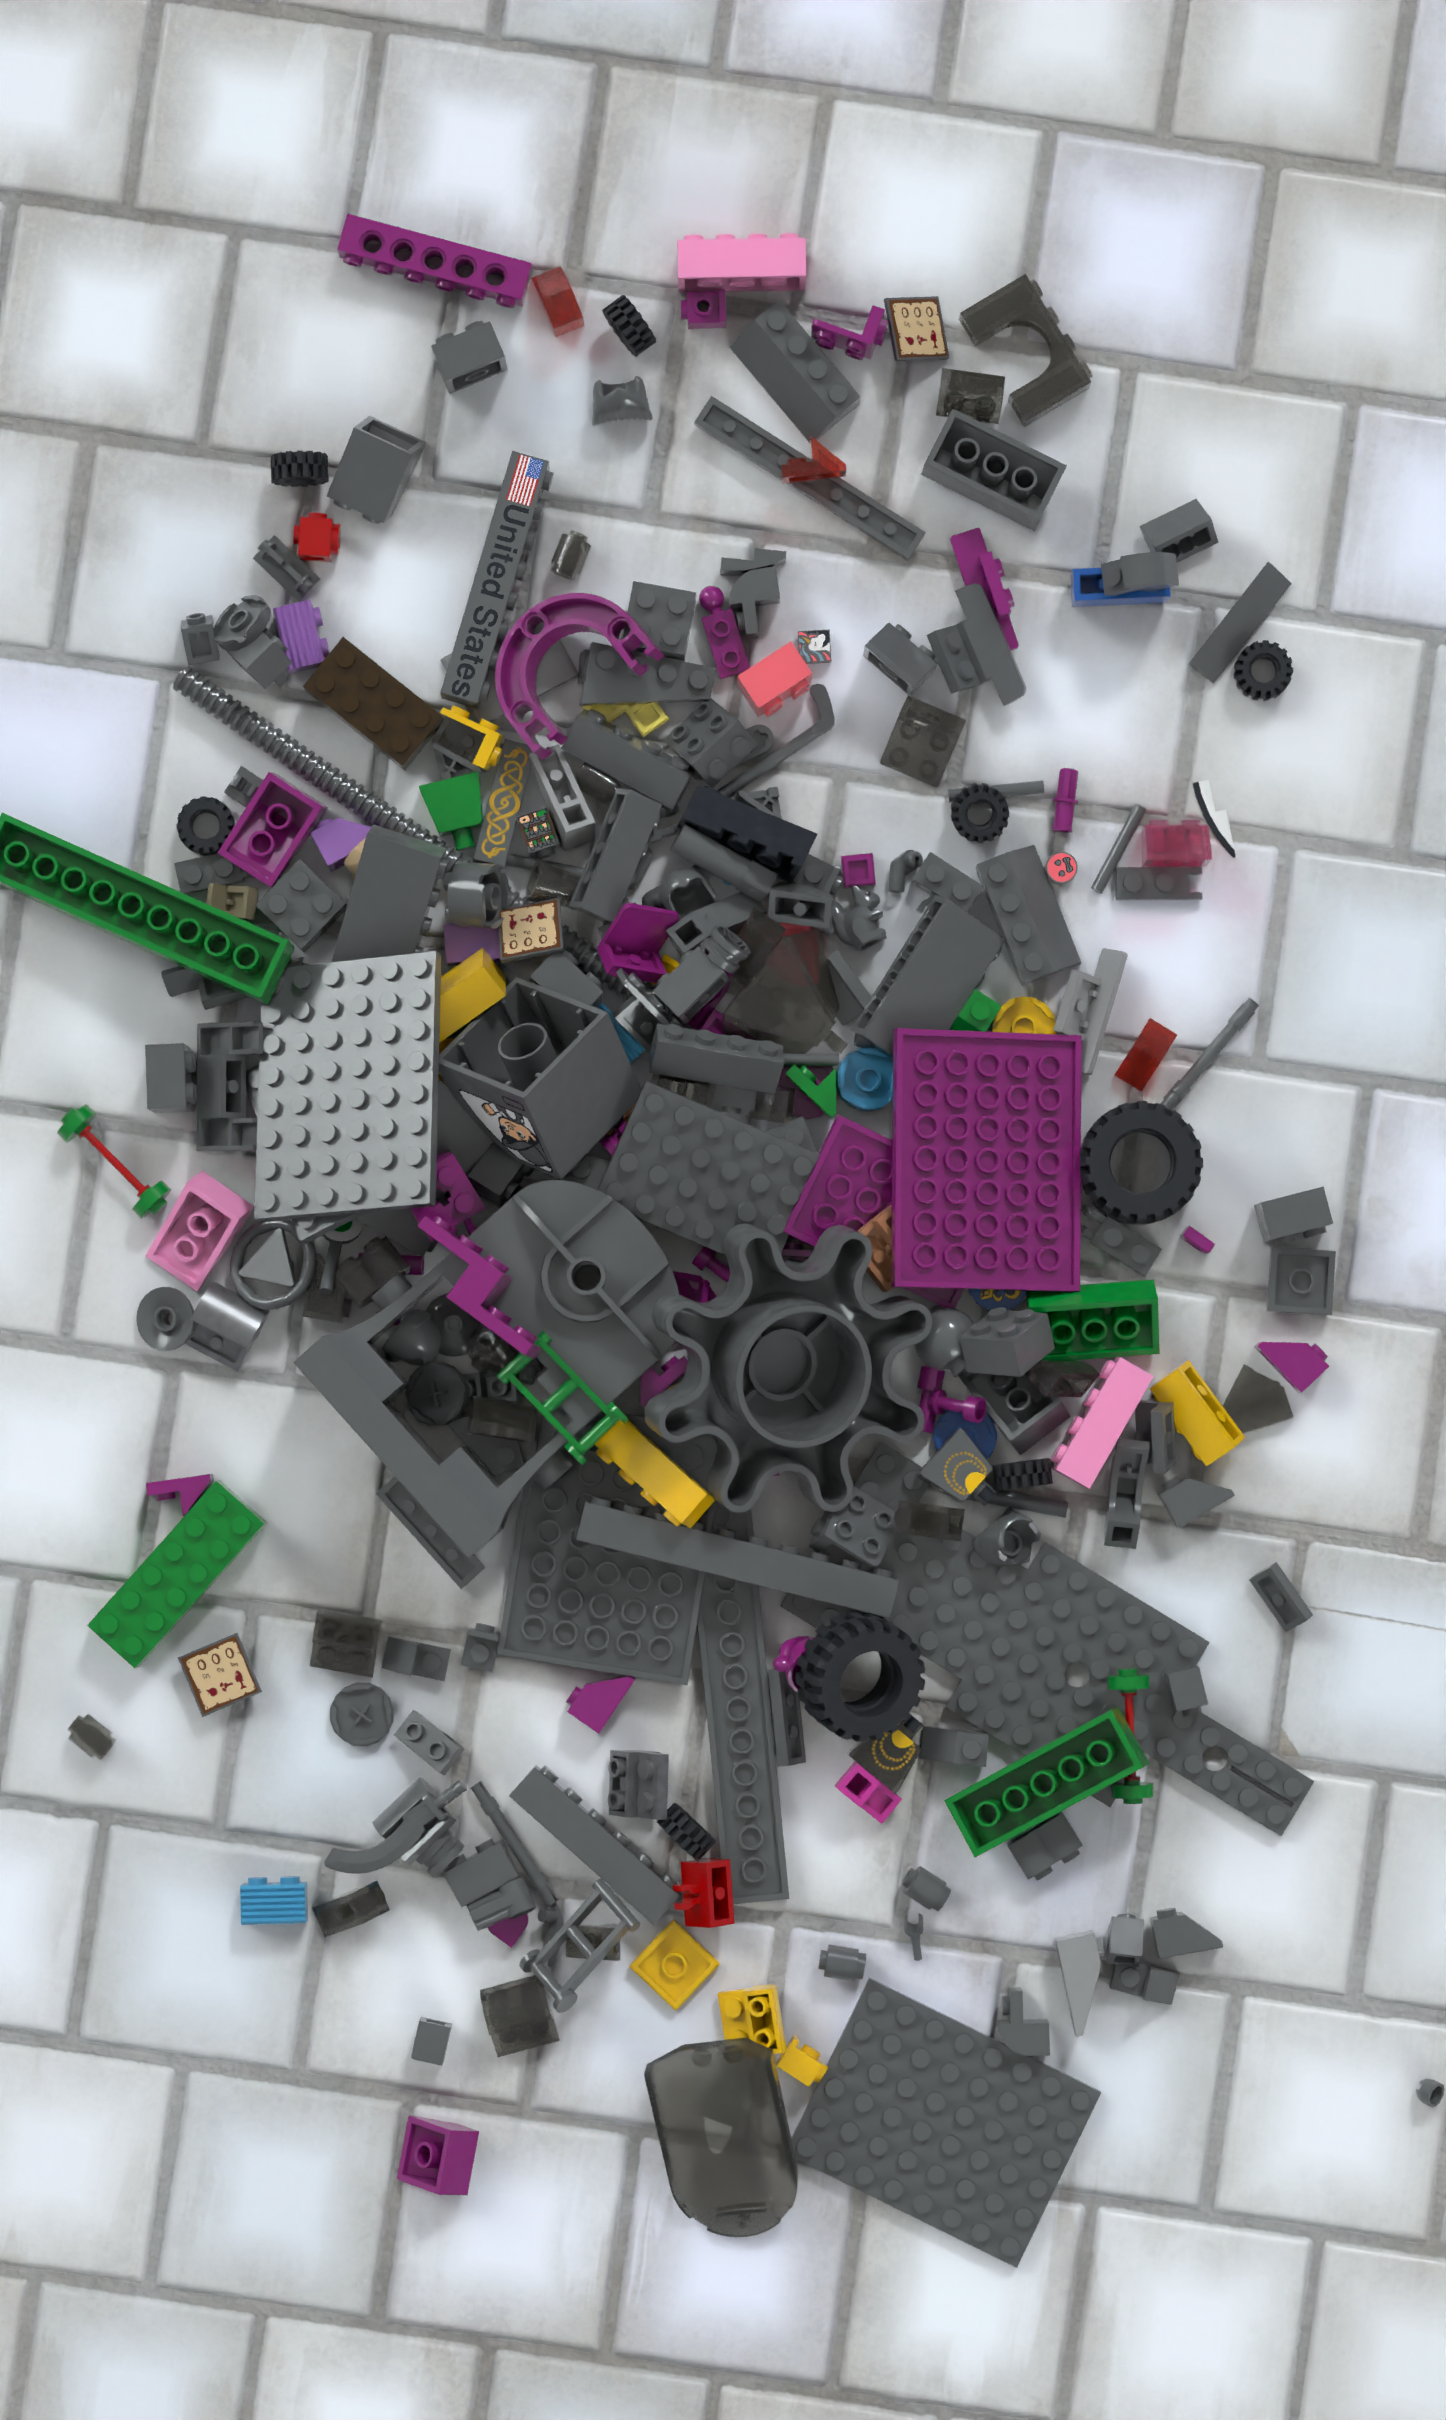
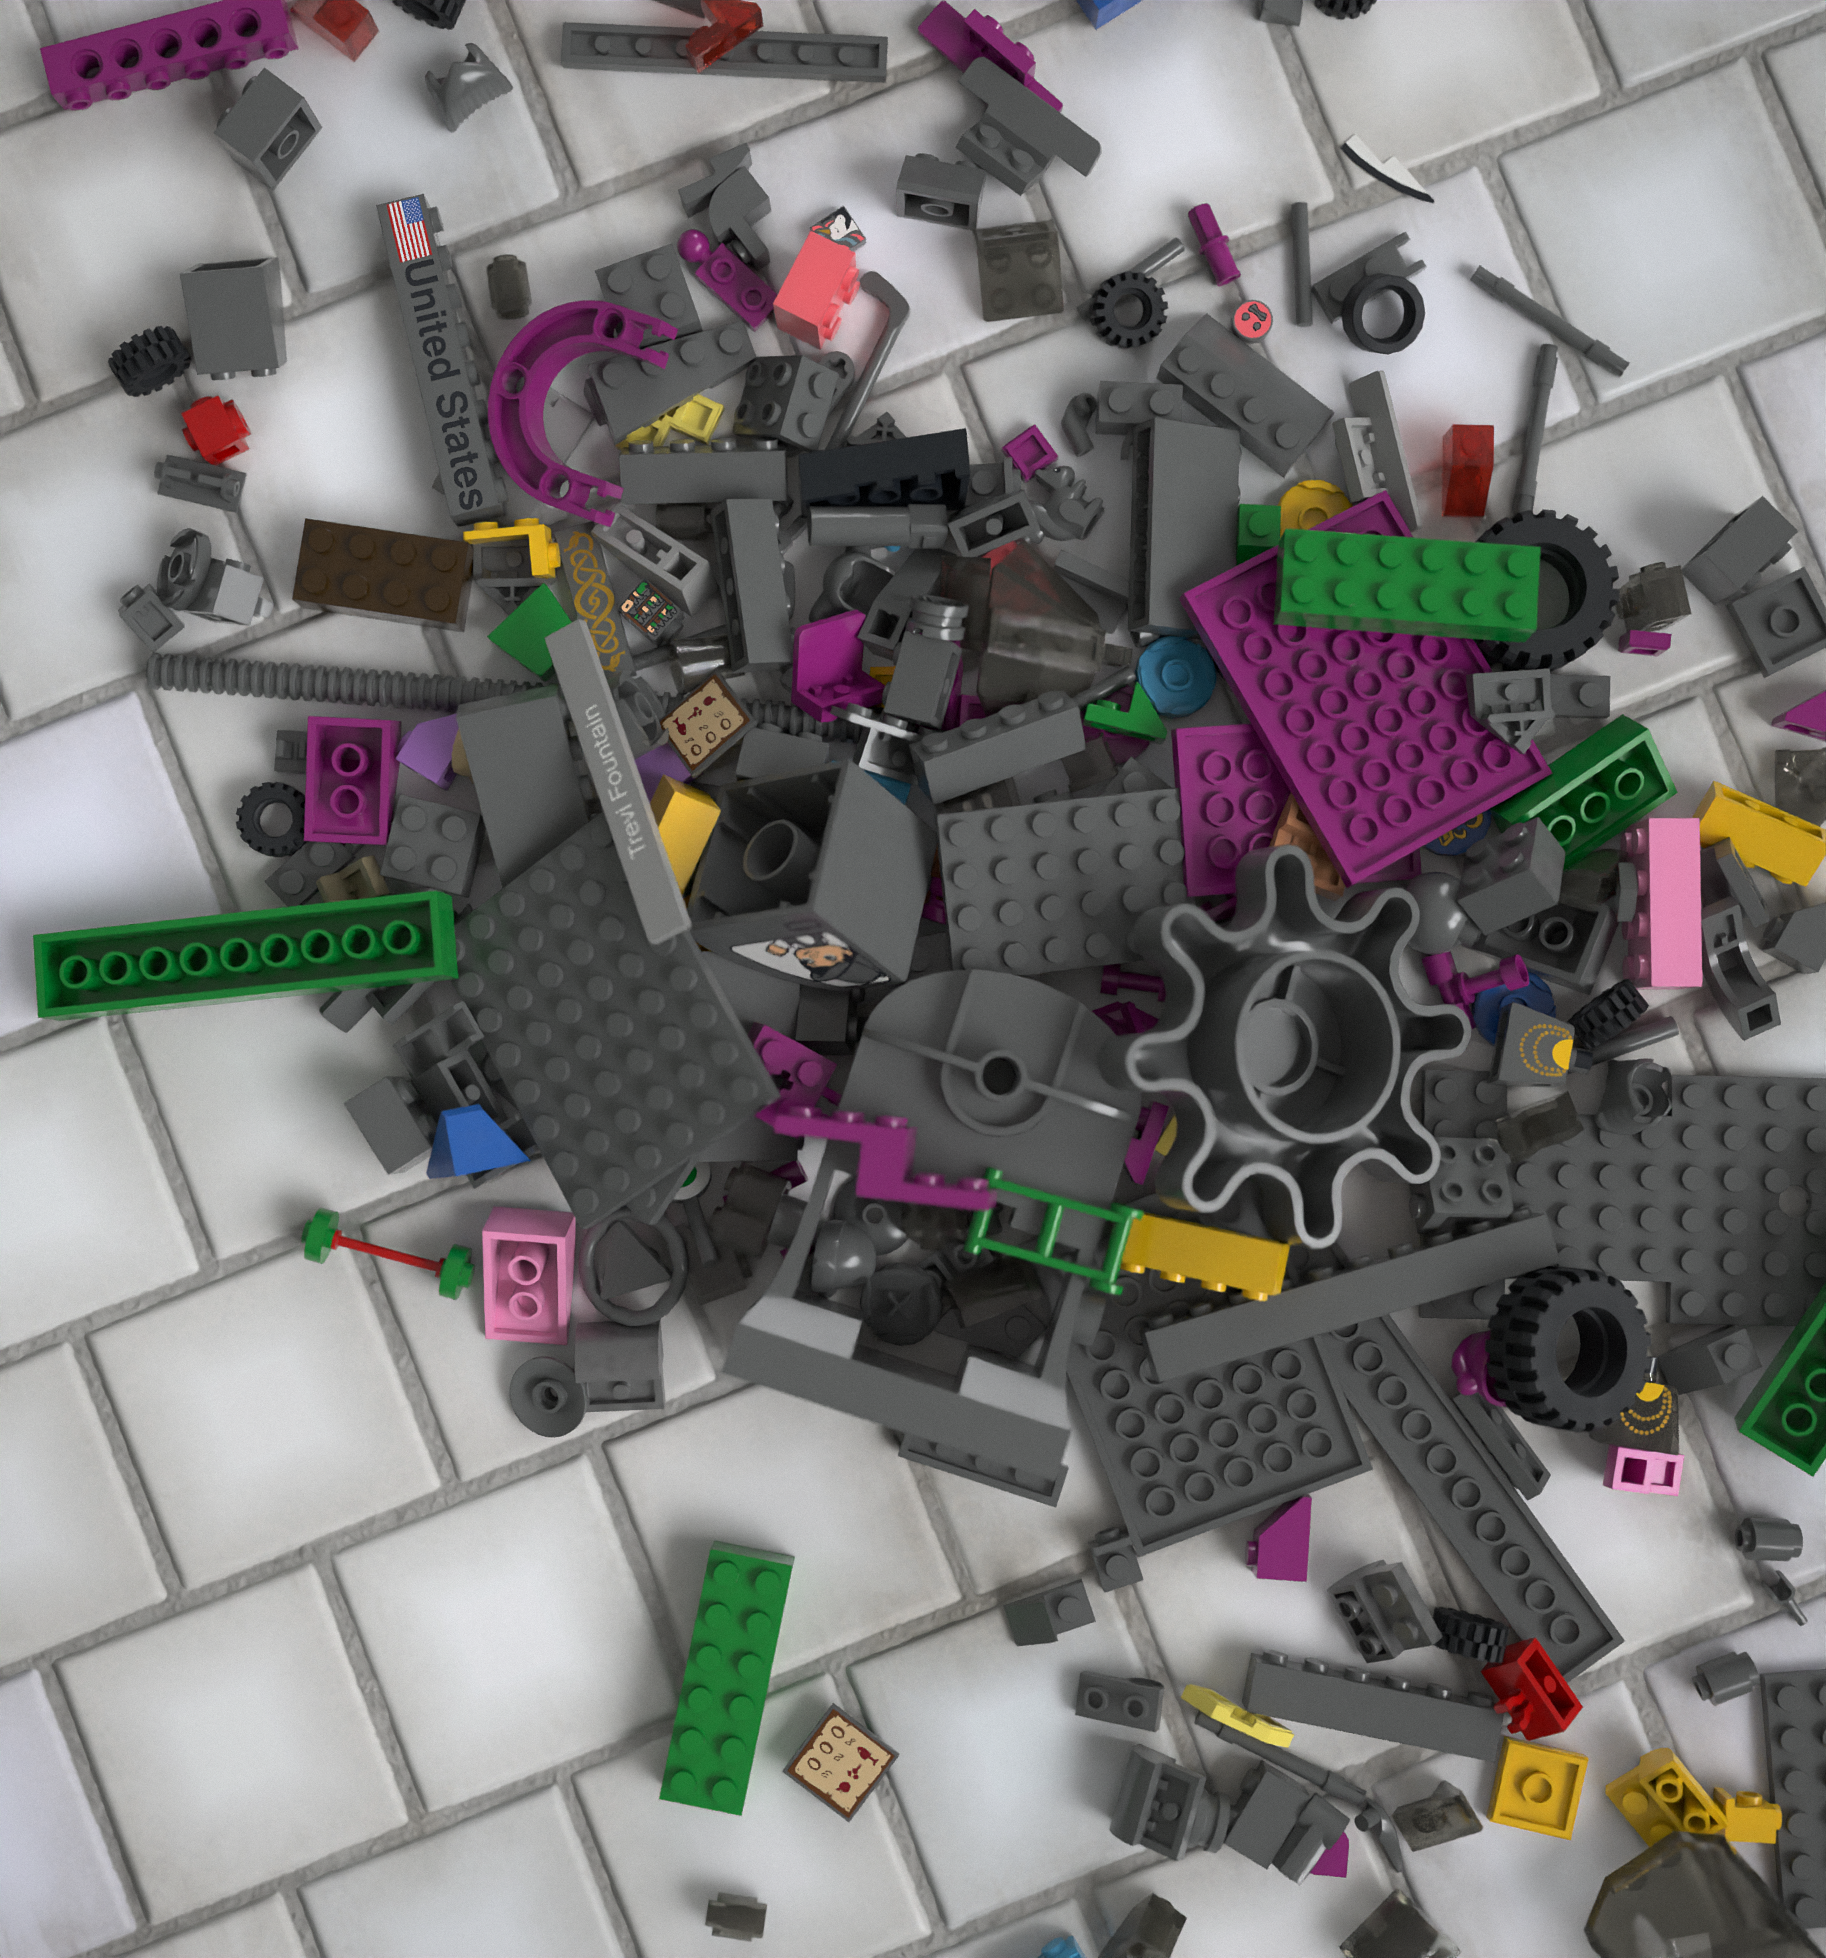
camera: 30 degrees left, 0 degrees up
(190, 1489) = (684, 1571): magenta slope -> none
(213, 1119) = (470, 1143): none -> blue slope
(299, 633) = (251, 539): medium lavender brick -> none
(345, 1642) = (961, 1643): clear smoke brick -> none
(361, 1714) = (1025, 1711): dark grey tile -> none
(400, 1840) = (1157, 1836): dark grey sword -> none
(448, 938) = (618, 782): none -> light grey tile
(501, 1797) = (1225, 1711): none -> light yellow tile
(535, 1959) = (1383, 1877): dark grey piece -> none
(1047, 1108) = (1407, 585): none -> green brick
(1078, 1228) = (1511, 704): none -> dark grey slope
(1078, 1398) = (1626, 892): none -> dark grey tile
(1161, 936) = (1412, 318): none -> black tyre
(1176, 844) = (1366, 220): clear pink slope -> none
(1216, 1213) = (1653, 598): none -> clear smoke brick
(1283, 1021) = (1593, 349): none -> dark grey piece

